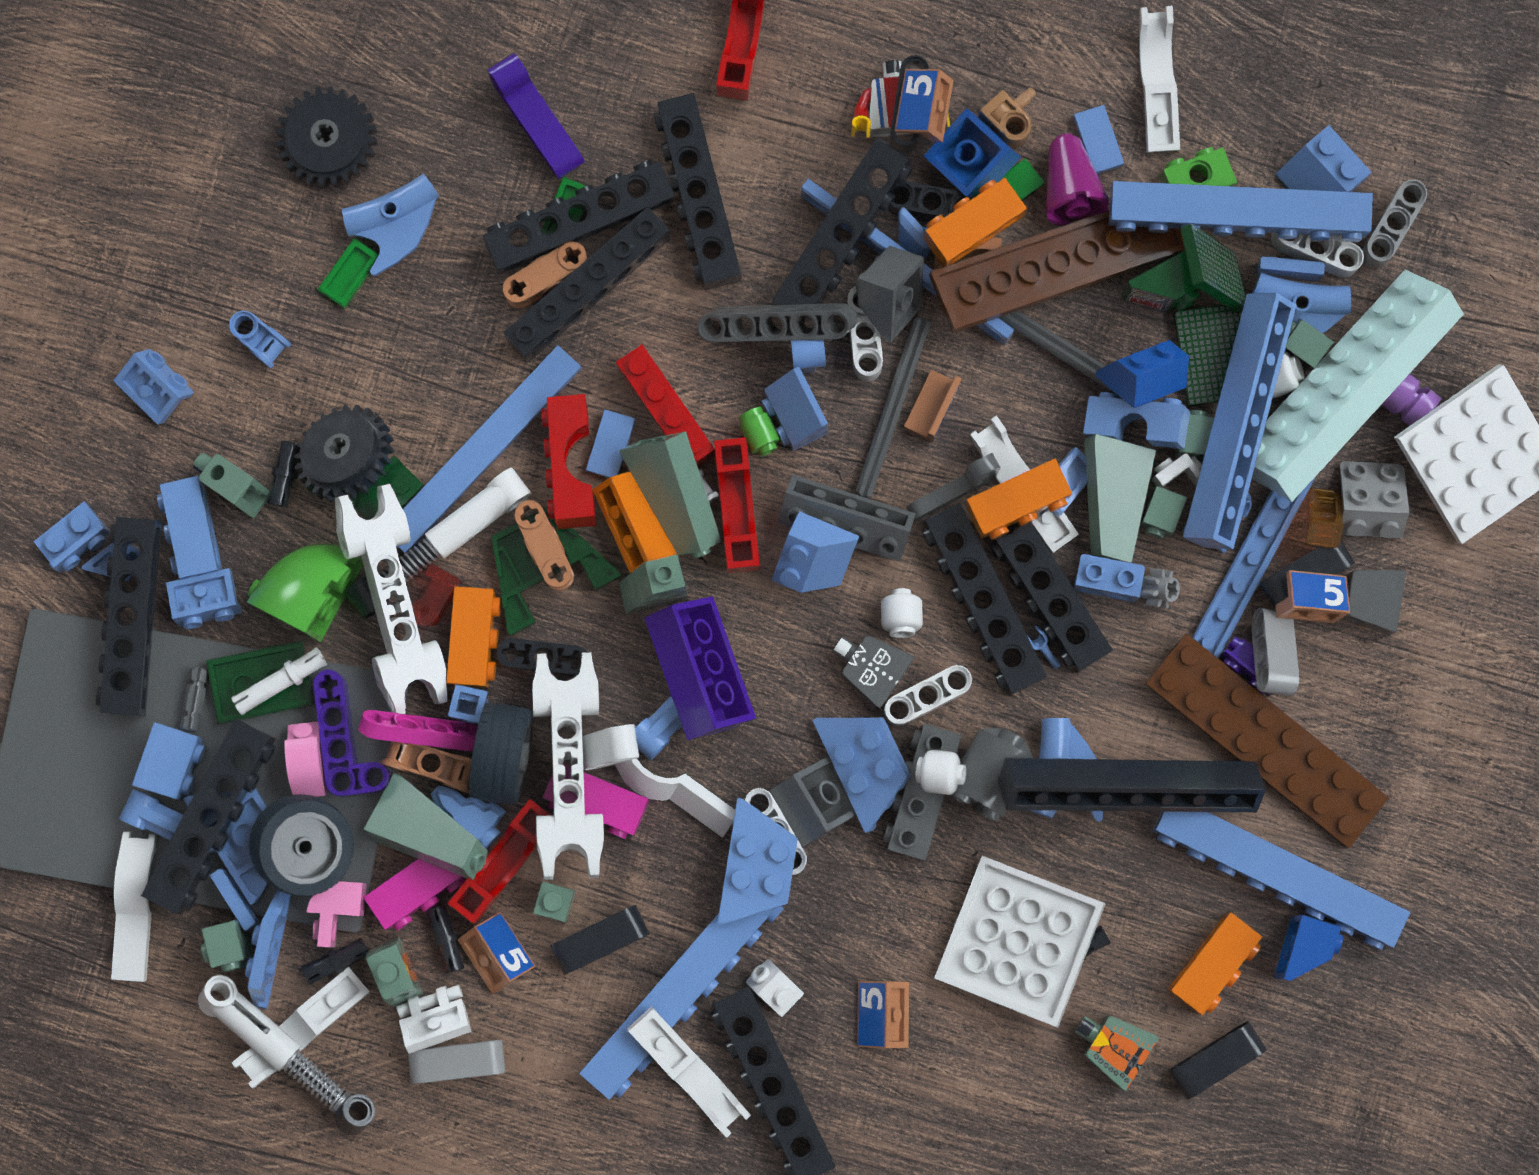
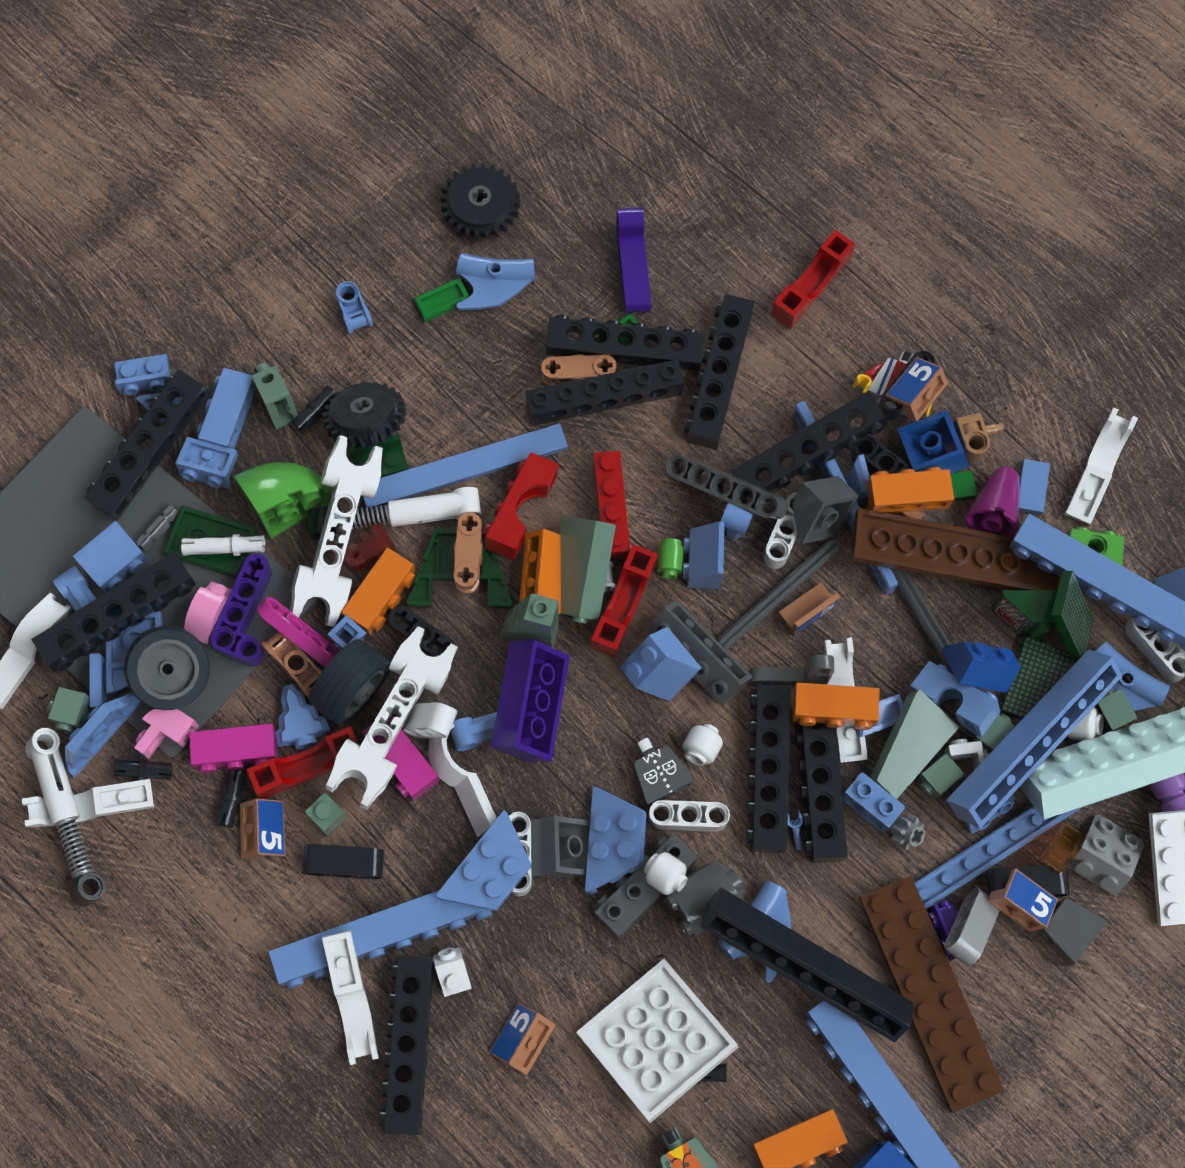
camera: 25 degrees right, 10 degrees down
(153, 385) = (261, 301): medium blue bracket -> none
(393, 972) = (178, 800): sand green torso -> none
(420, 829) = (260, 707): sand green slope -> none
(434, 1025) = (186, 850): white plate -> none
(457, 1061) = (185, 892): light grey beam -> none
(612, 436) = (565, 503): medium blue tile -> none
(1290, 268) = (1131, 651): medium blue tile -> none

